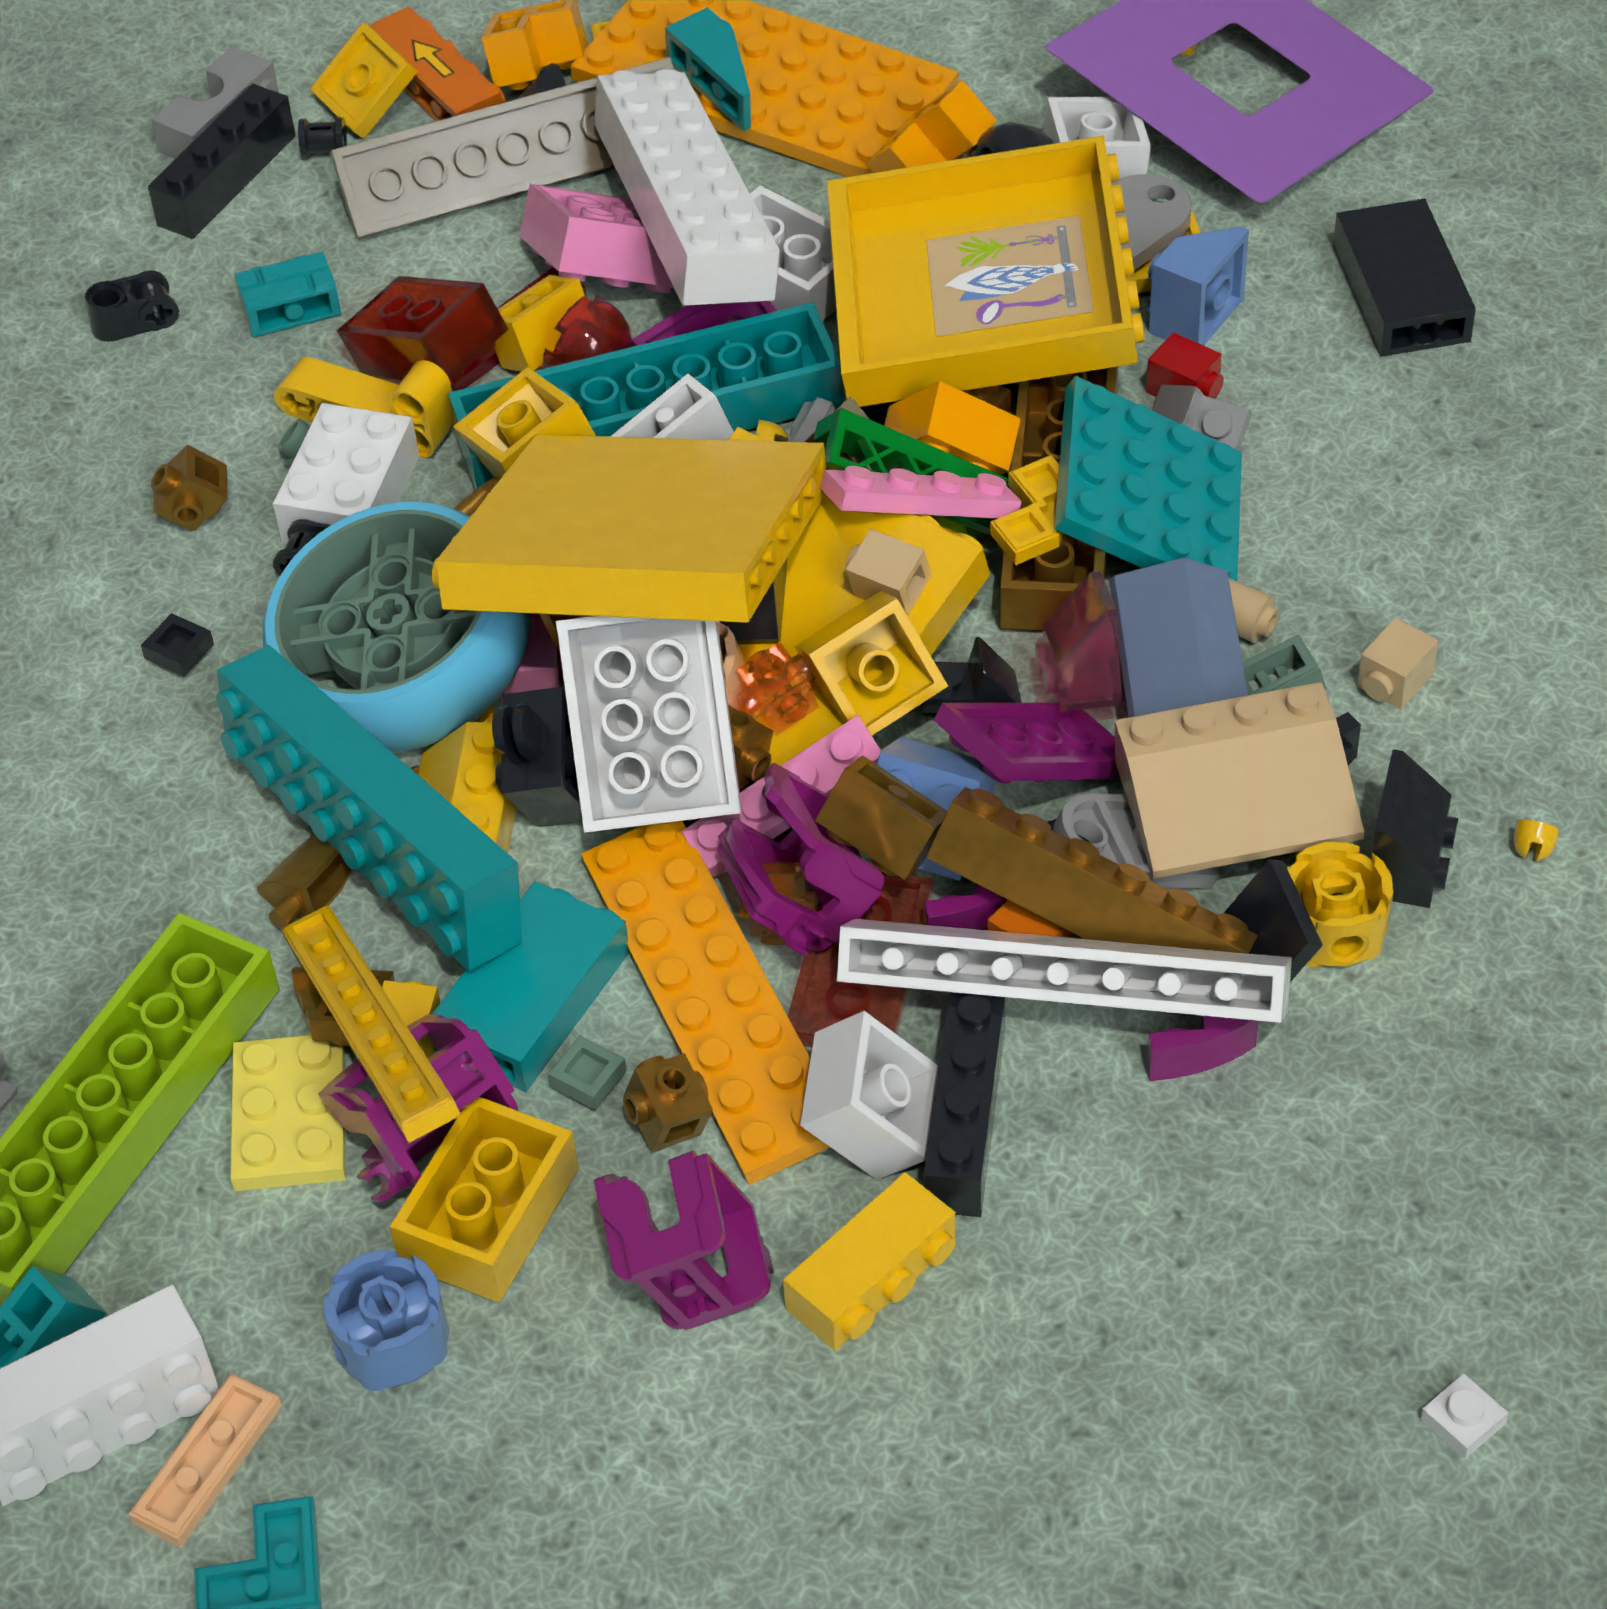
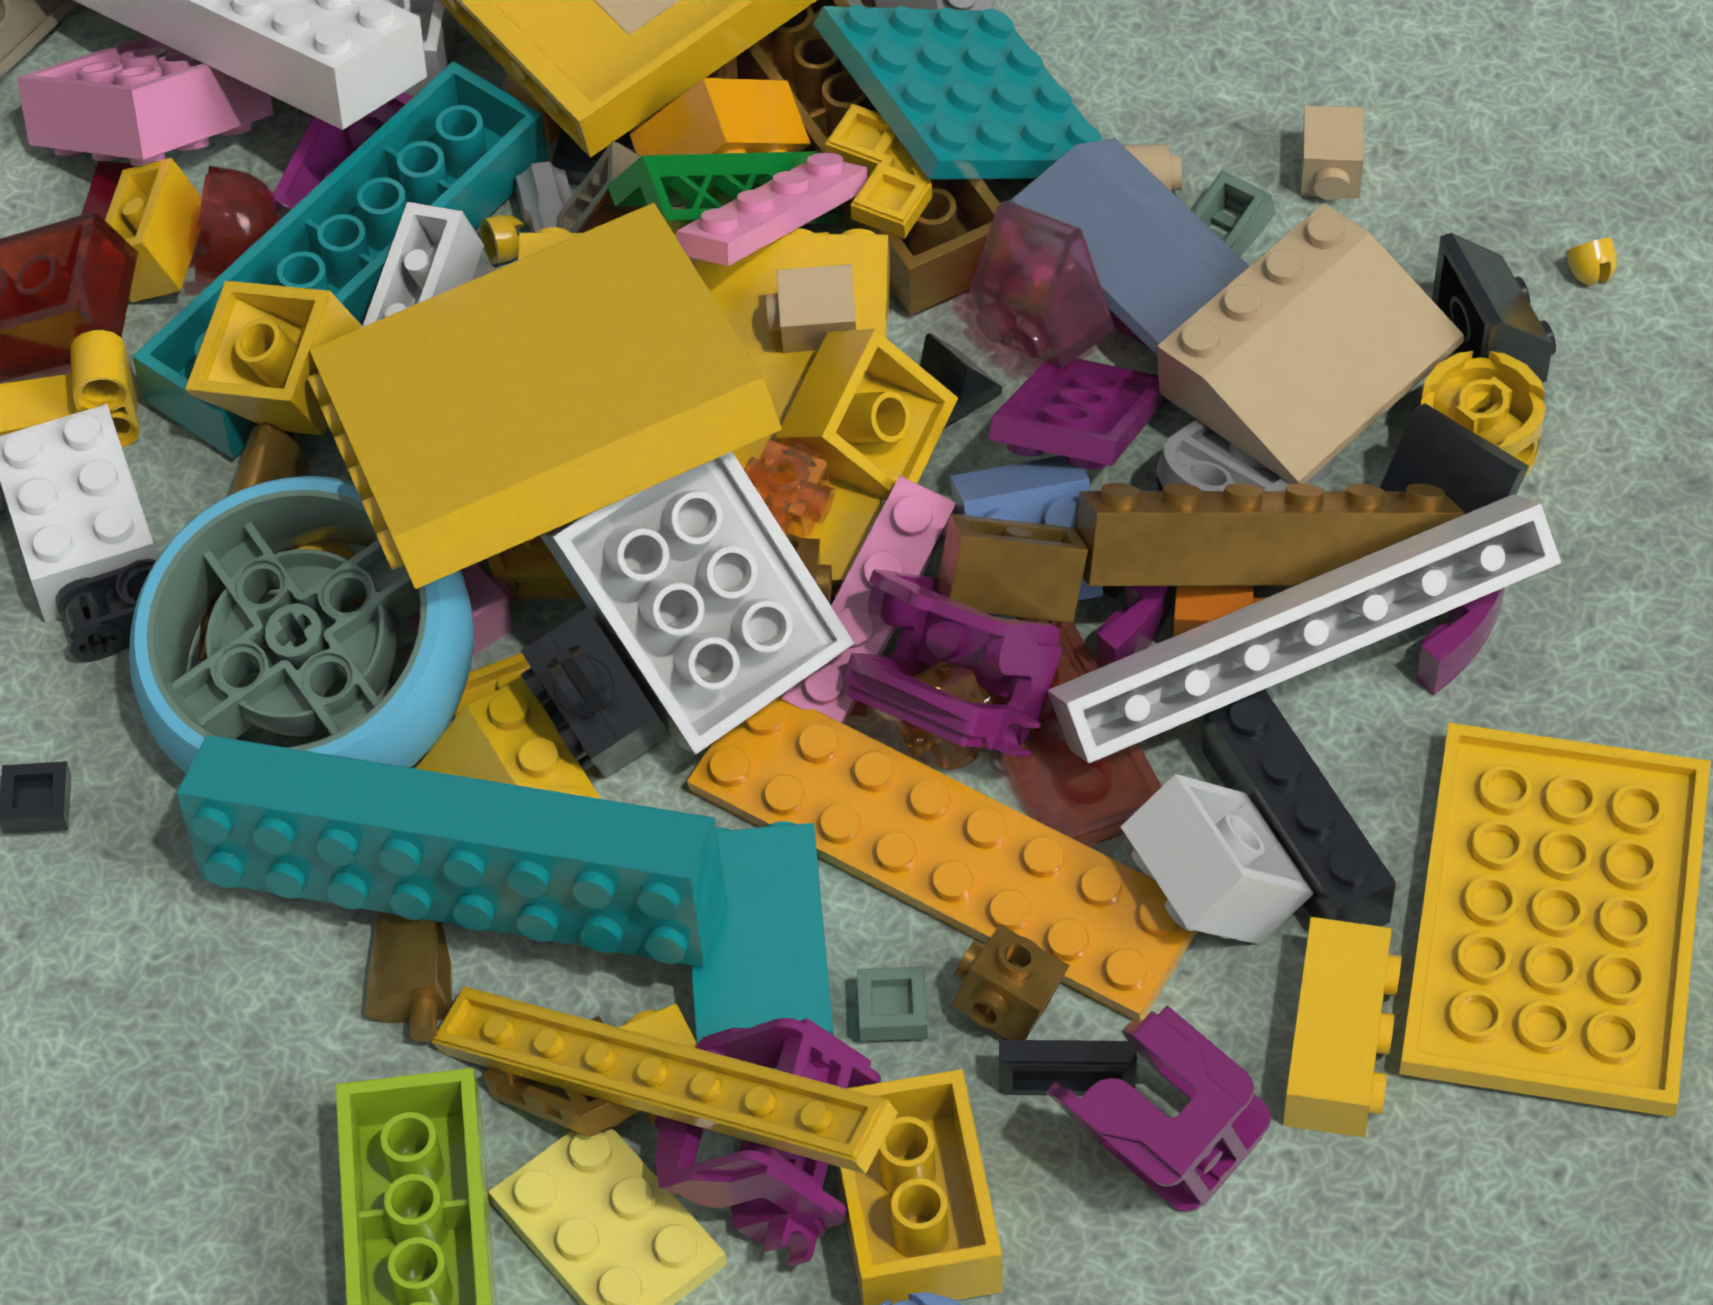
camera: 35 degrees left, 5 degrees up
(645, 1168) = (1035, 1065): none -> black tile
(1096, 1281) = (1558, 920): none -> yellow plate

